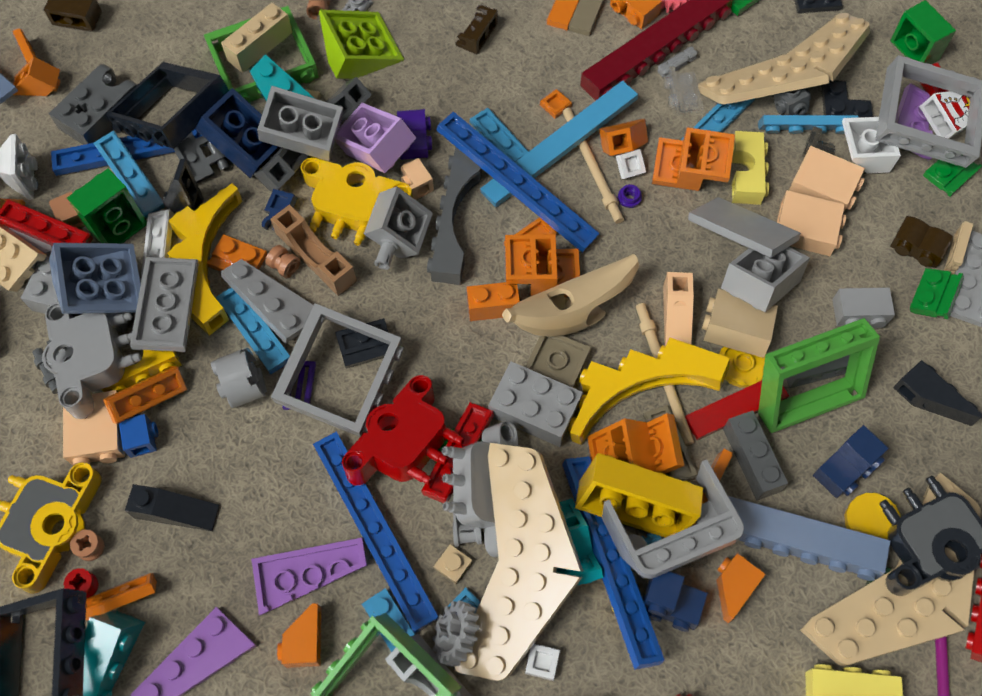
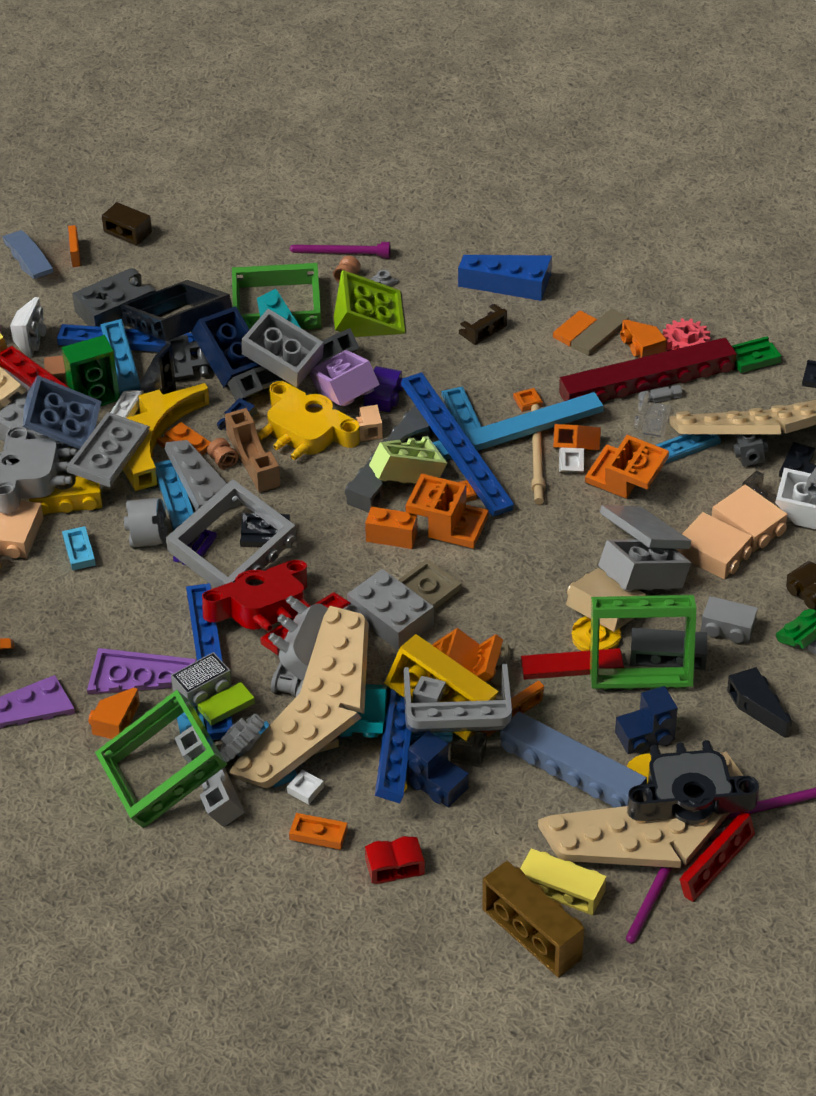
camera: 20 degrees right, 20 degrees down
(37, 79) = (73, 268): orange slope -> none
(138, 435) = (44, 542): blue brick -> none
(145, 394) = (63, 512): orange tile -> none
(170, 508) = (47, 598): black slope -> none
(177, 429) = (78, 548): none -> medium azure plate
(257, 37) = (284, 275): tan brick -> none
(383, 571) = (202, 679): none -> brick
(397, 226) = (333, 448): light grey brick -> none
(418, 587) = (226, 703): none -> lime tile
(453, 564) = (265, 703): tan plate -> none
(481, 219) = (407, 460): none -> yellowish green wedge
(555, 315) = (451, 544): tan piece -> none
(629, 190) = (558, 485): dark purple plate -> none
(638, 372) = (494, 610): yellow arch -> none
(639, 522) = (428, 690): none -> light grey panel
(648, 329) = (522, 587): tan bar -> none
(678, 306) = (554, 577): light nougat slope -> none
(736, 584) = (500, 782): orange slope -> none
(750, 185) = (676, 502): light yellow arch -> none
(755, 455) = (566, 696): dark grey brick -> none
(797, 123) = (745, 467): dark azure plate -> none

